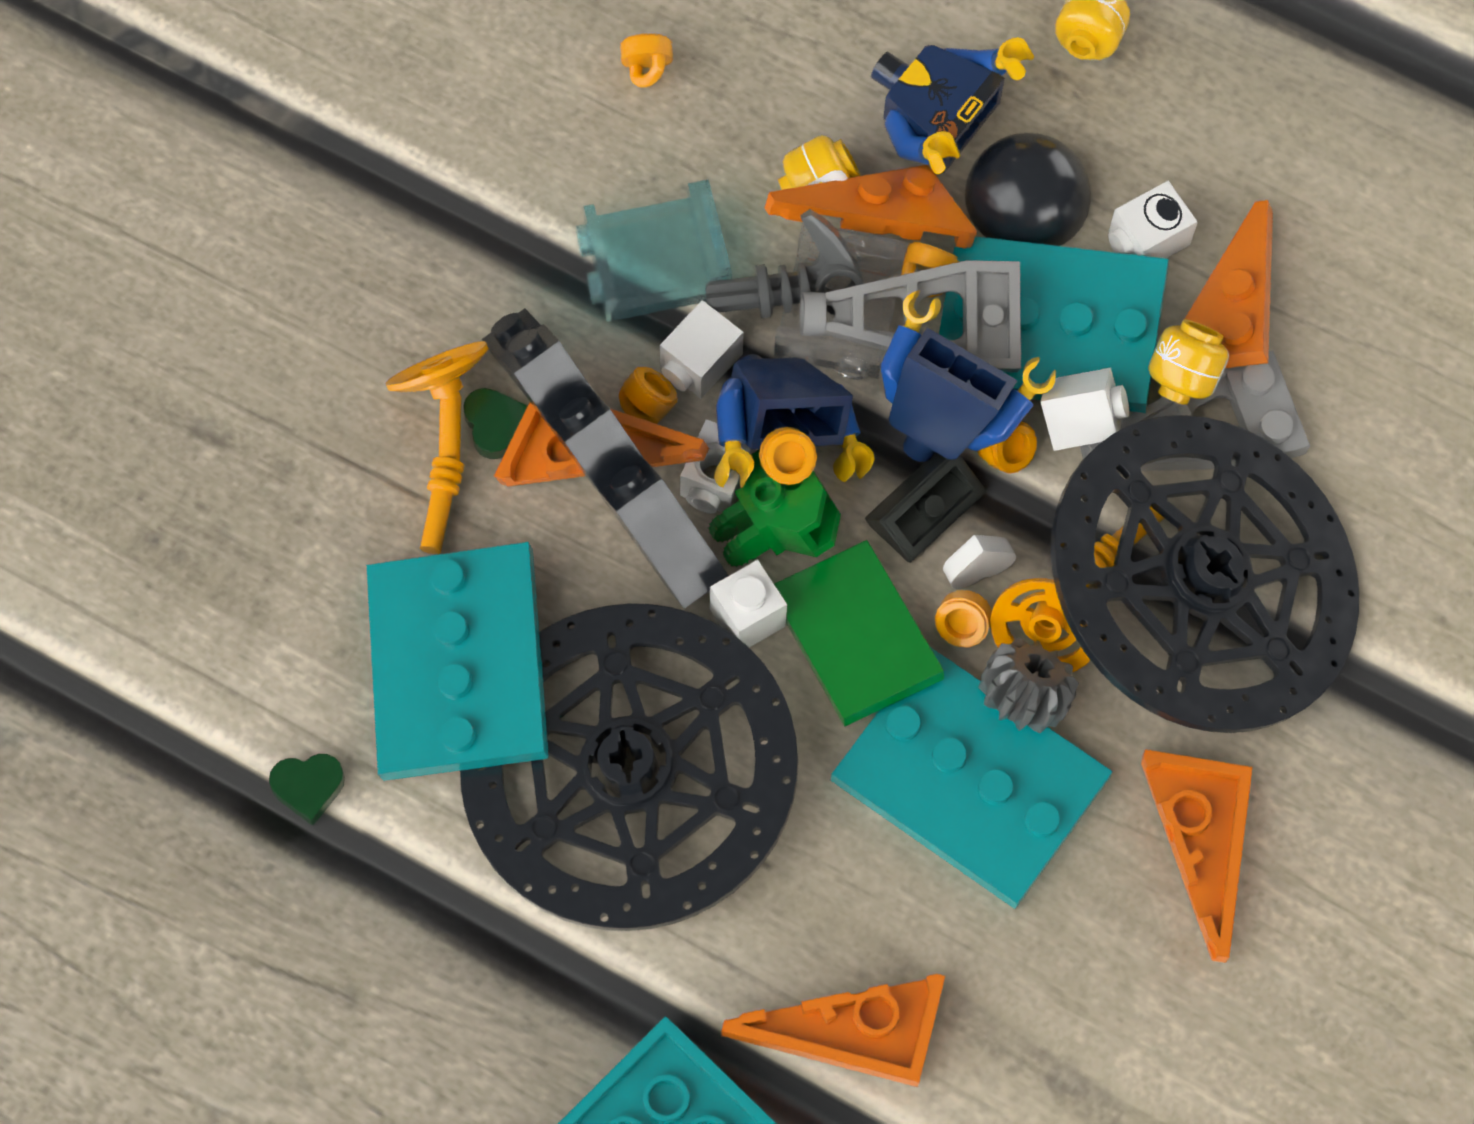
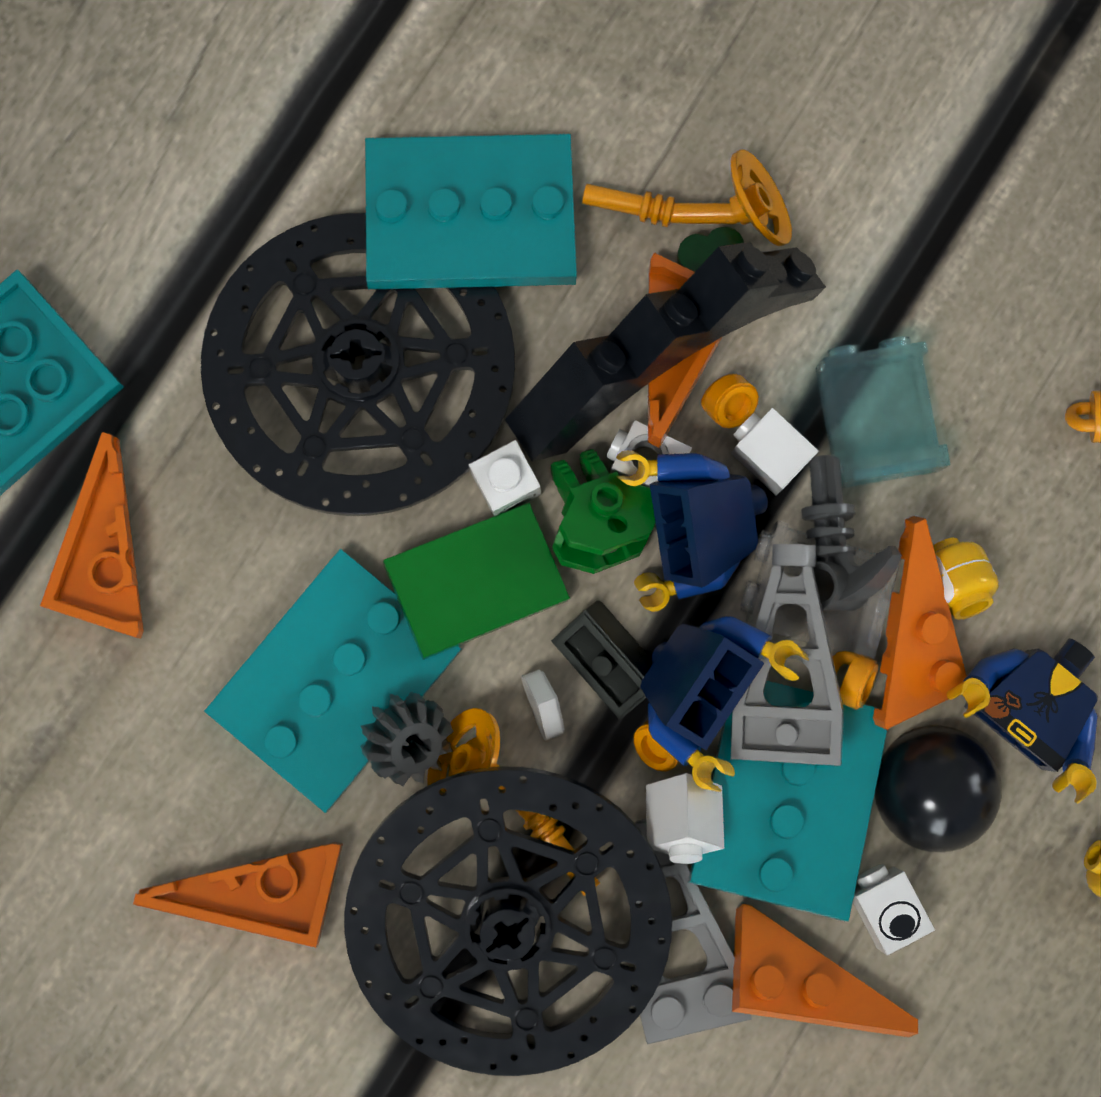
camera: 95 degrees right, 15 degrees up
(307, 785) = (364, 80): dark green tile -> none
(788, 455) = (636, 517): light orange tile -> none
(963, 618) = (486, 684): light orange tile -> none
(1188, 362) = (729, 929): yellow head -> none

